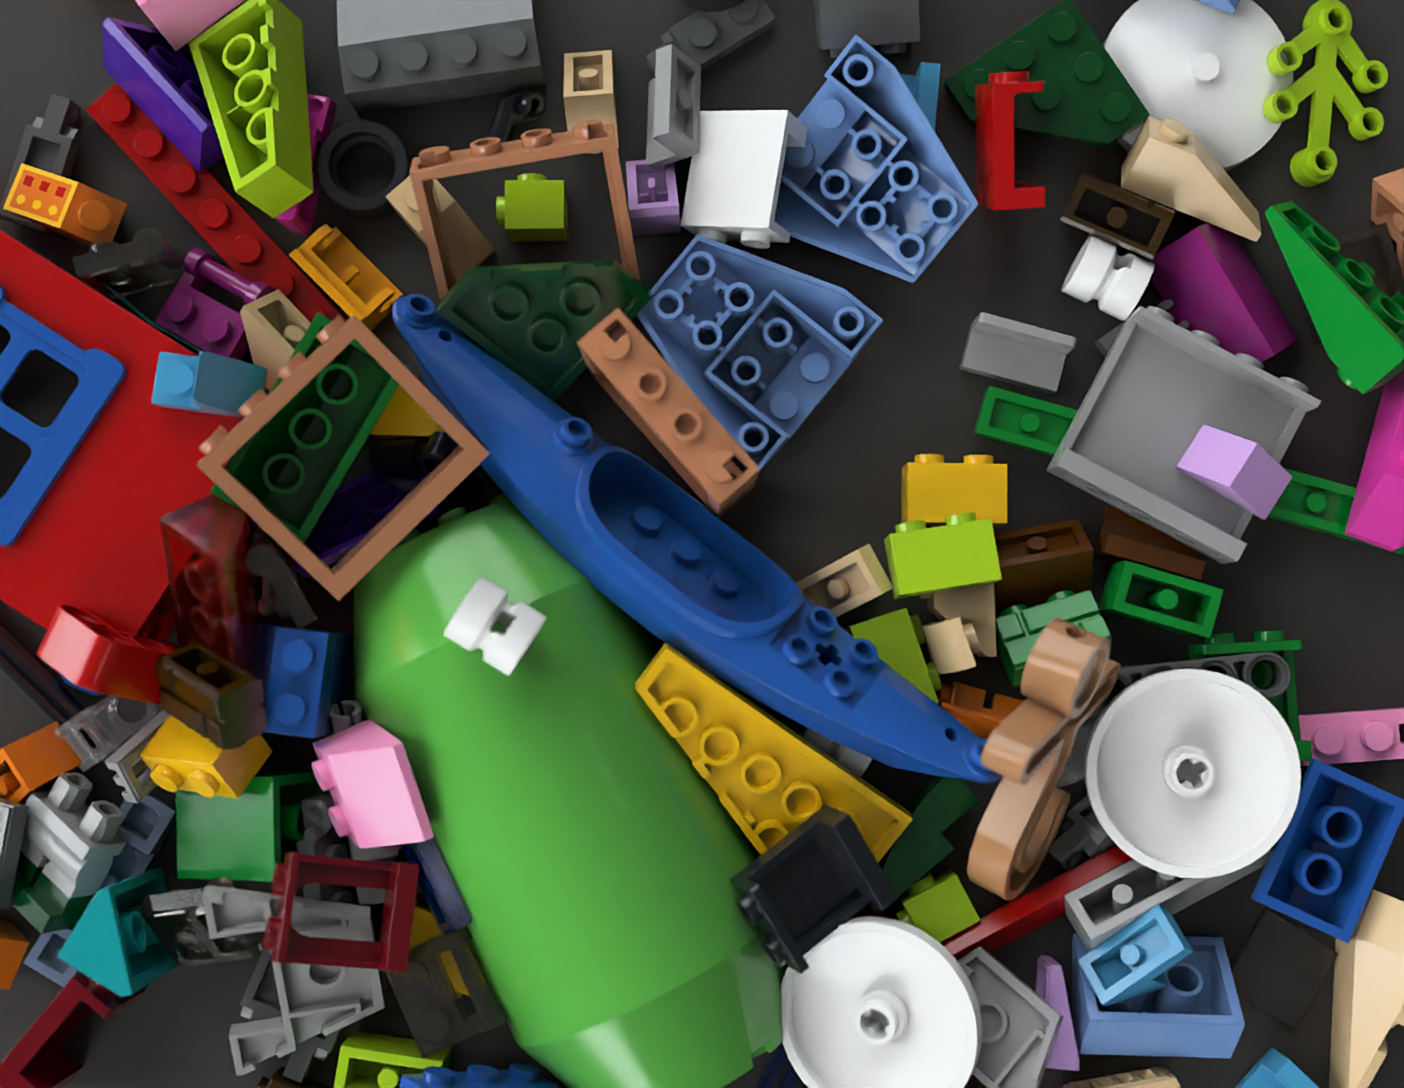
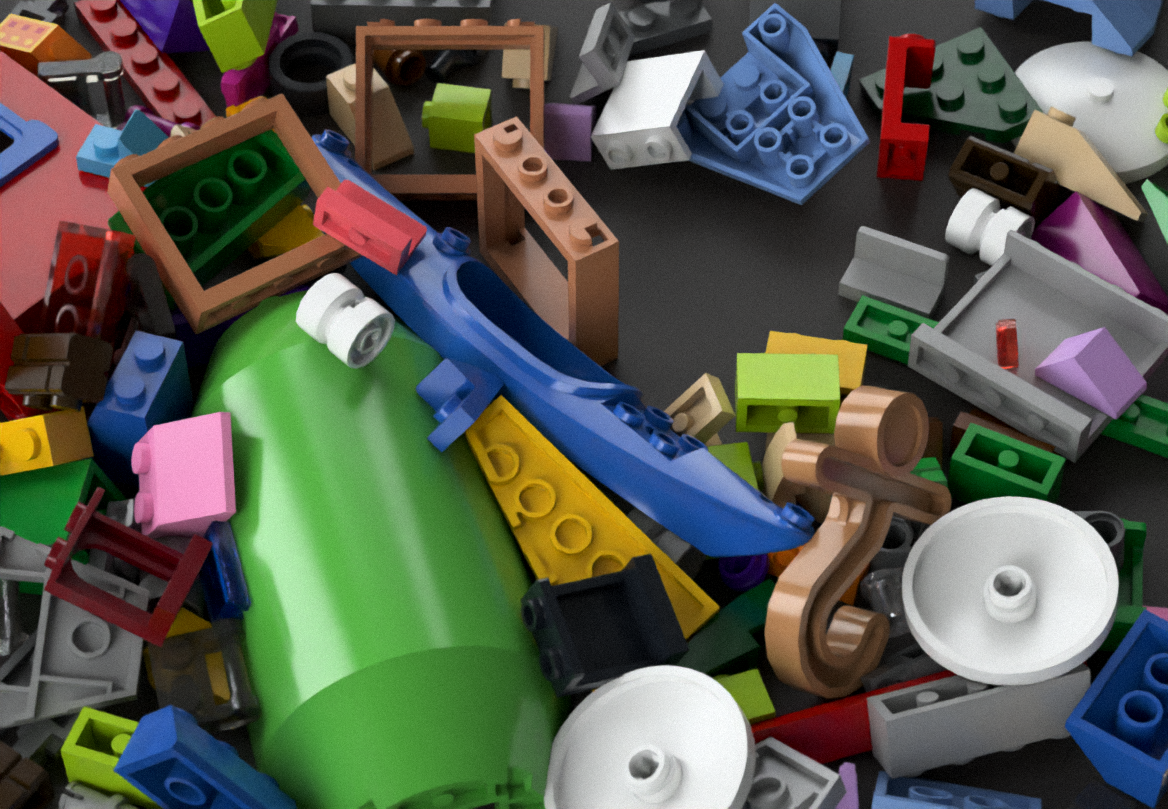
camera: 10 degrees right, 35 degrees down
(445, 125) = (401, 65): none -> reddish brown cone
(487, 454) = (368, 225): none -> coral panel
(539, 313) = (426, 167): dark green plate -> none
(634, 673) = (458, 396): none -> blue slope
(754, 339) = (671, 227): medium blue wedge -> none
(1136, 957) = (921, 762): dark azure slope -> none
(1149, 448) = (1006, 343): none -> clear red tile

